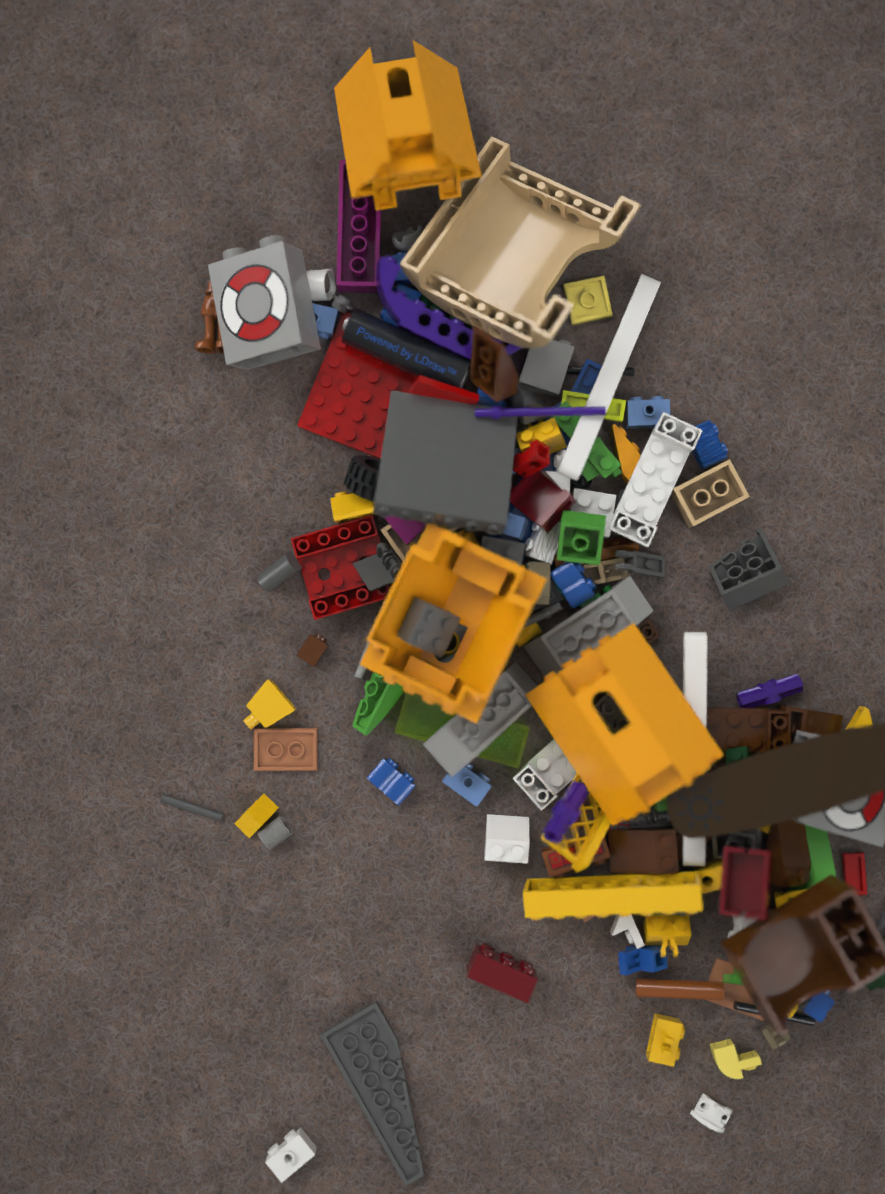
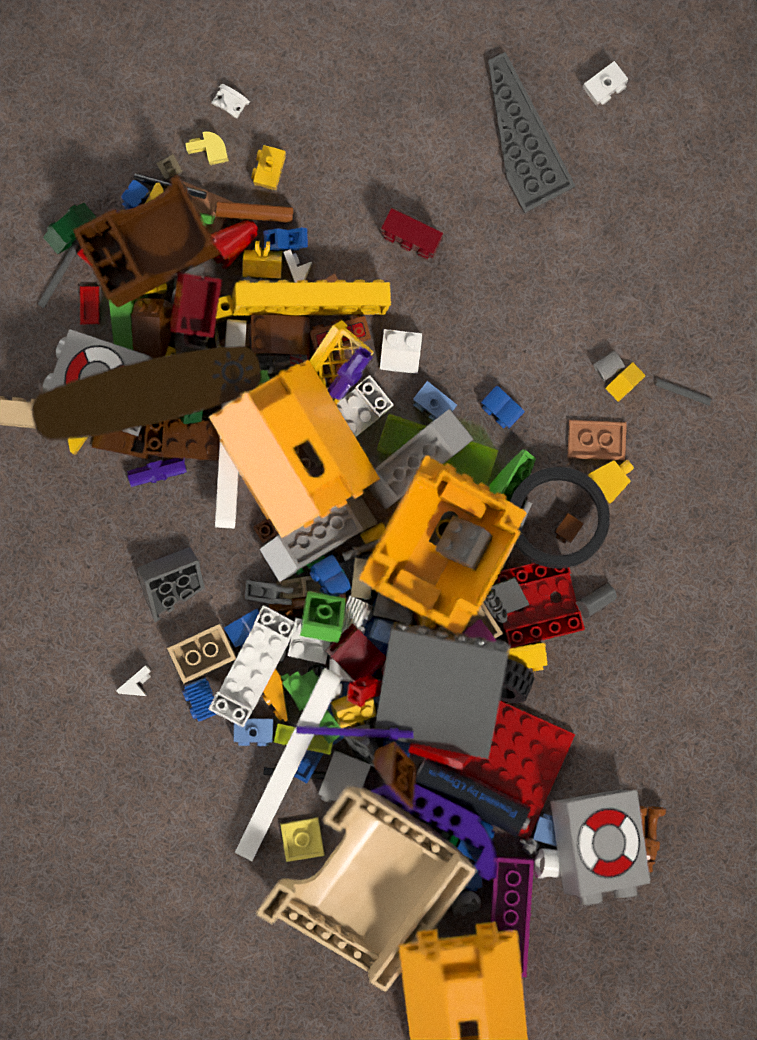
camera: 175 degrees left, 0 degrees up
(286, 693) = (595, 492): none -> black tyre
(669, 522) = (241, 628): none -> blue brick
(701, 954) = (233, 241): none -> red cone
(782, 455) = (132, 687): none -> white slope

